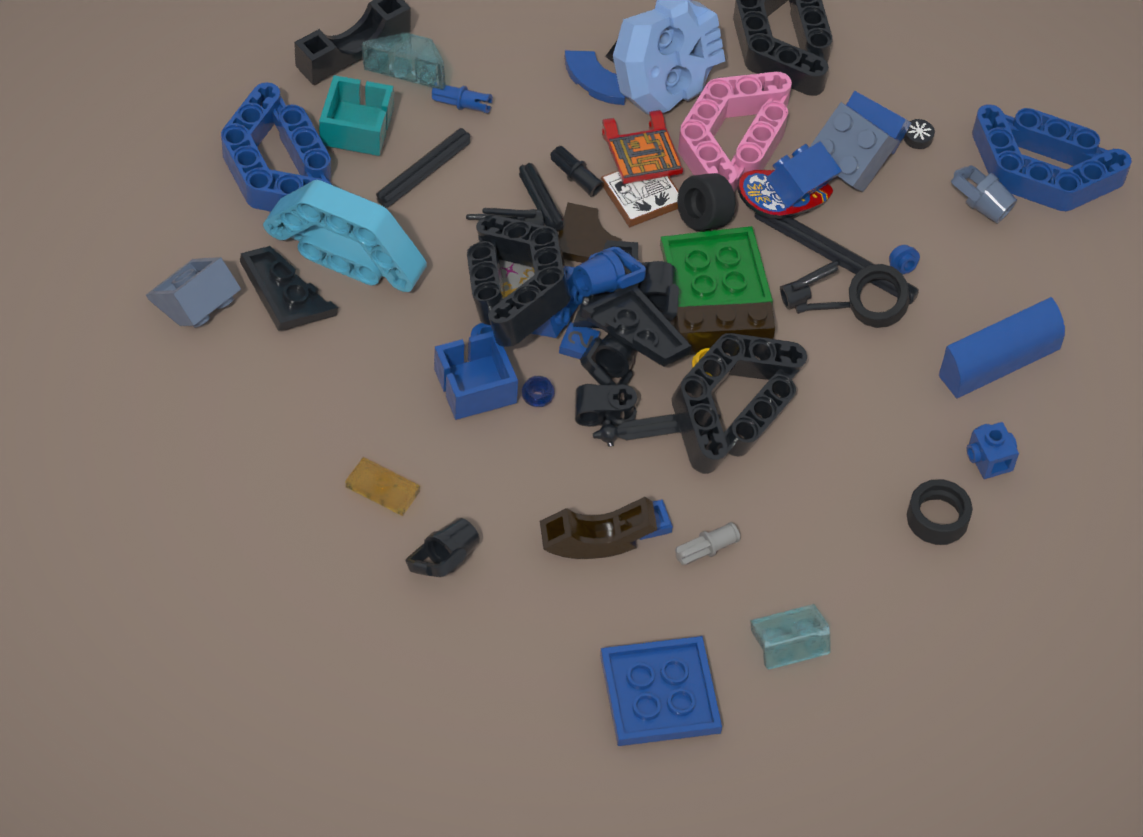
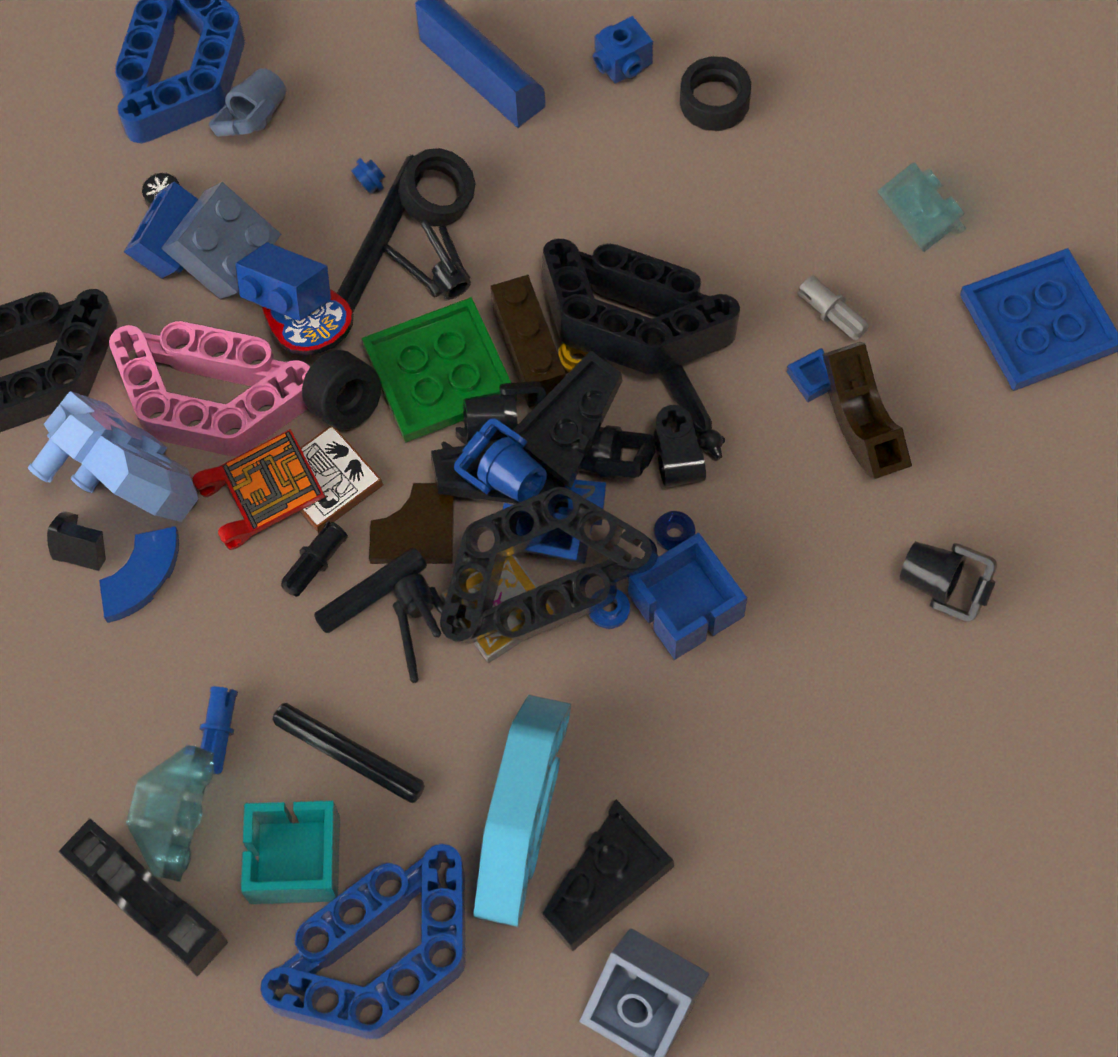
camera: 95 degrees left, 10 degrees up
(382, 486) = (868, 677): clear yellow plate -> none

